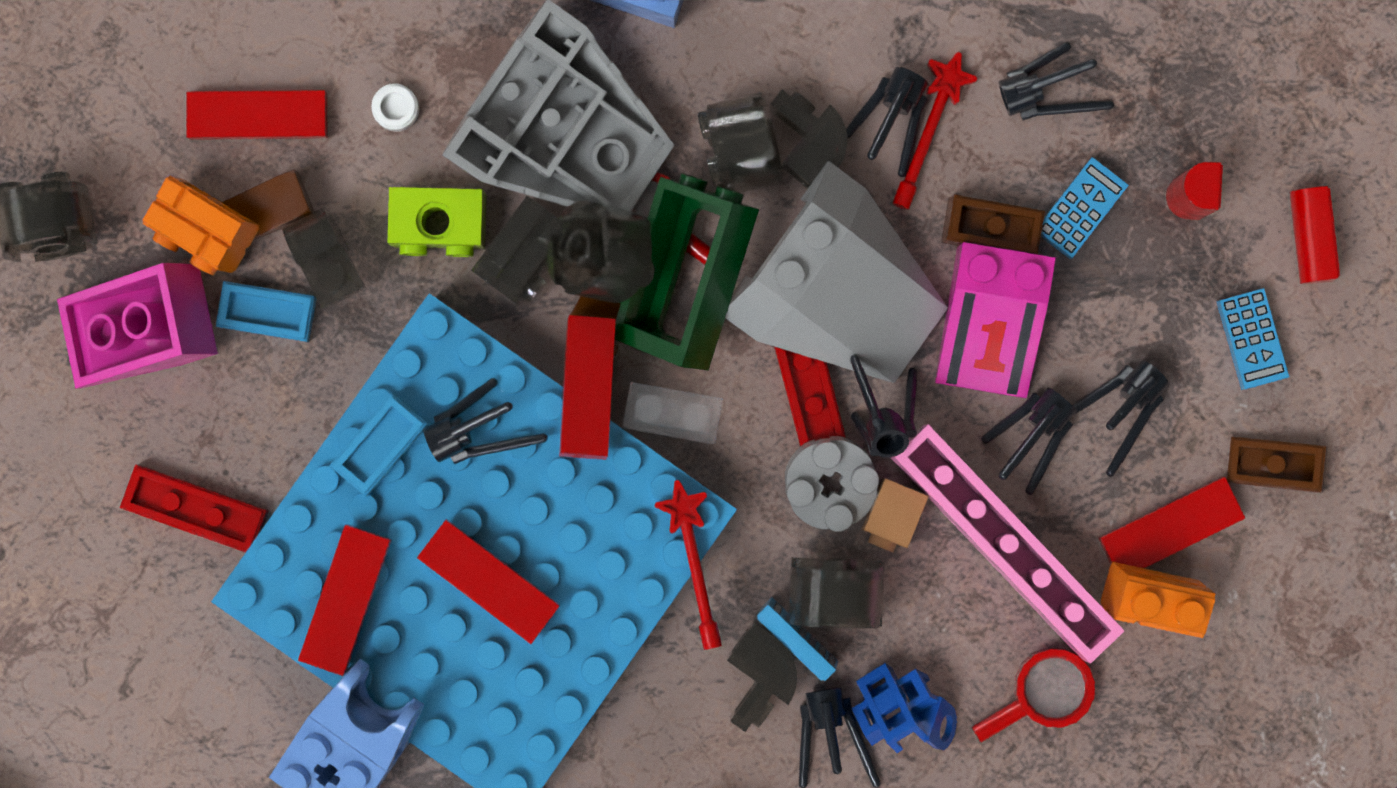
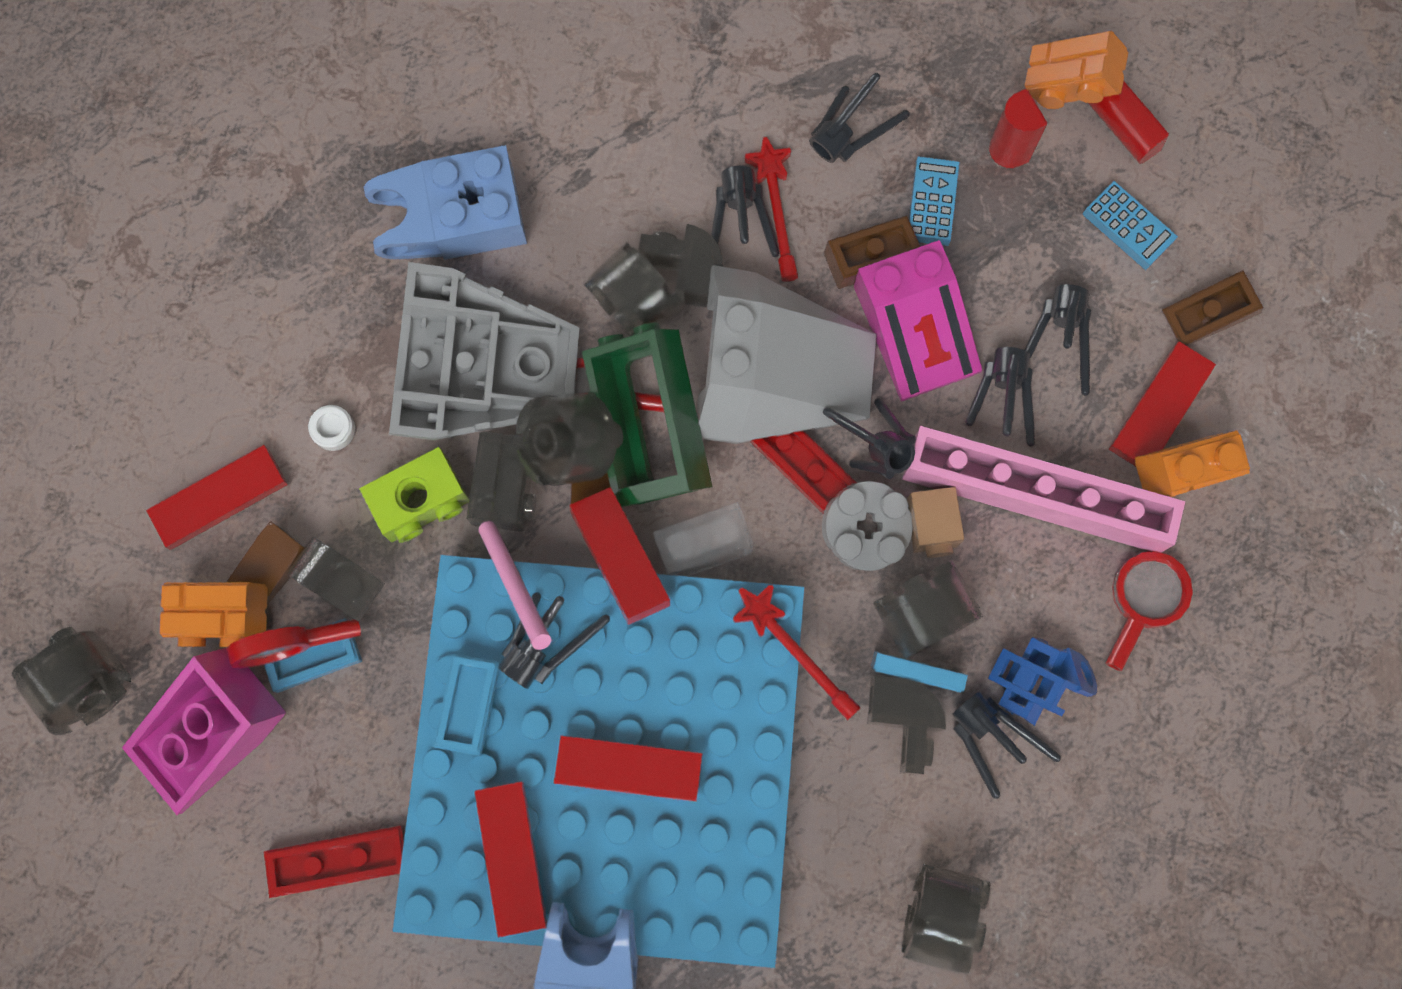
camera: 30 degrees left, 10 degrees down
(255, 296) = (286, 642): none -> red piece
(477, 364) = (515, 586): none -> bright pink bar
(1291, 163) = (1076, 69): none -> orange brick

